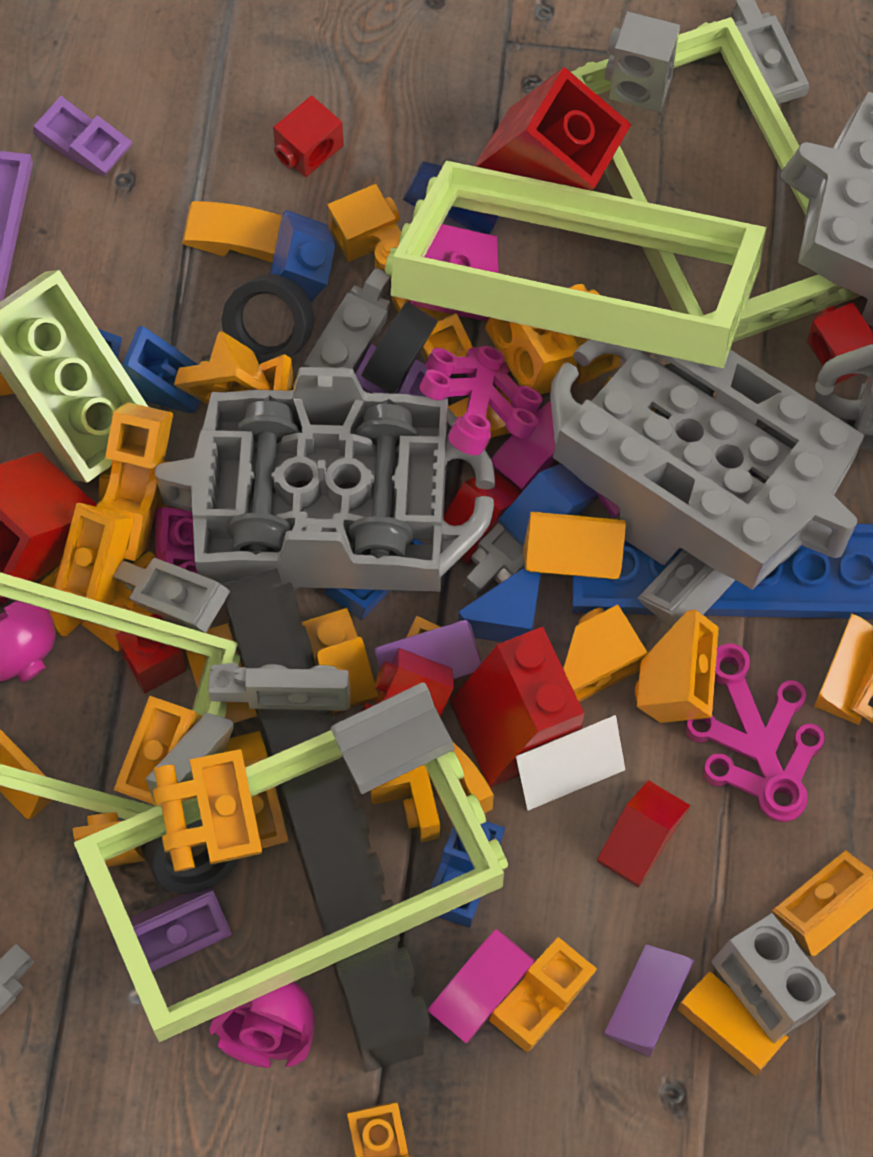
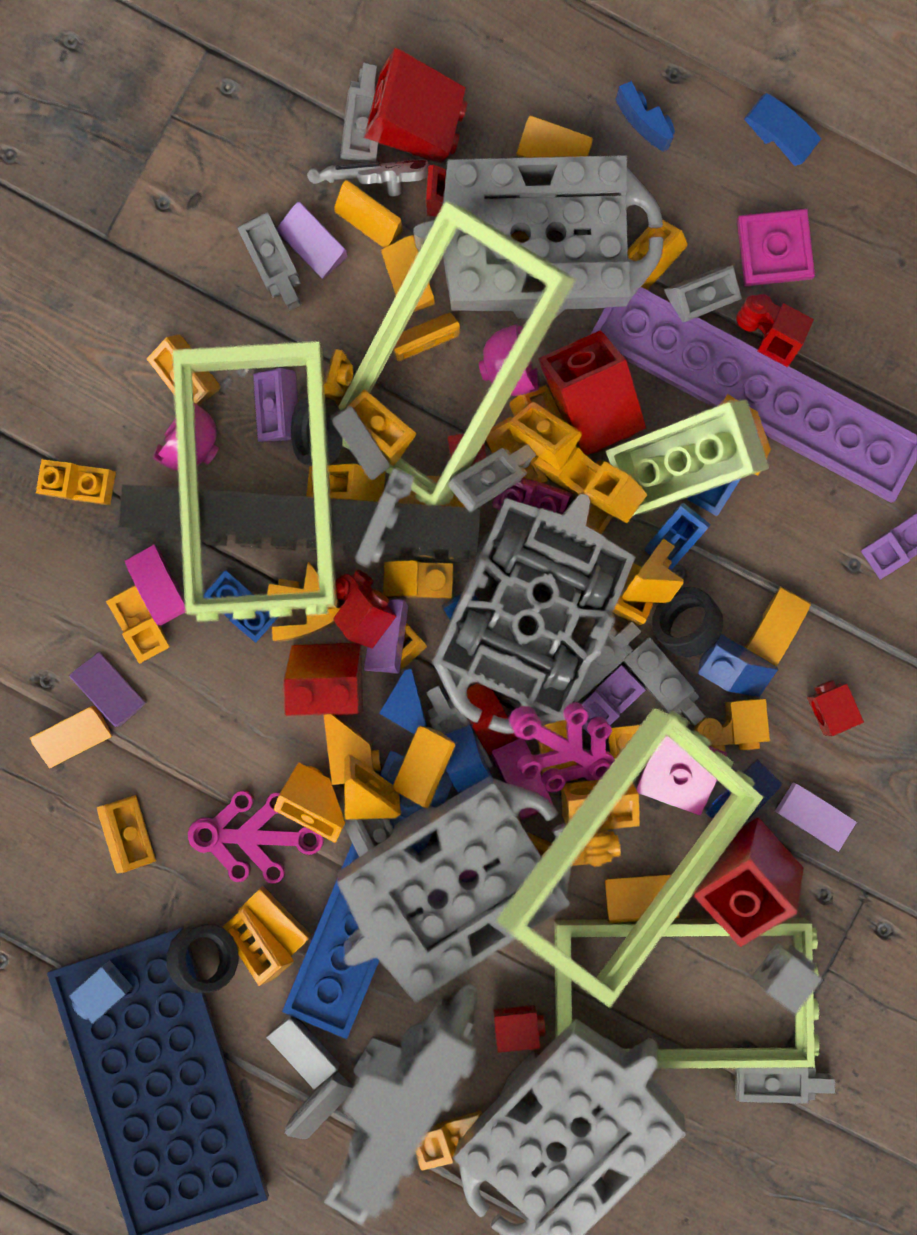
camera: 110 degrees right, 20 degrees up
(172, 1076) = (162, 361): none -> light orange slope
(224, 809) = (300, 445): light orange plate -> none
(392, 738) = (298, 574): light grey panel -> none
(399, 347) = (622, 702): black tyre -> none
(444, 117) = (815, 816): none -> lavender slope
(571, 763) = (276, 706): white sticker -> none
(627, 269) = (630, 897): none -> light orange slope
(640, 601) = (368, 793): none -> light orange slope
(642, 832) = (219, 734): red slope -> none
(766, 981) = (80, 766): light grey brick -> none

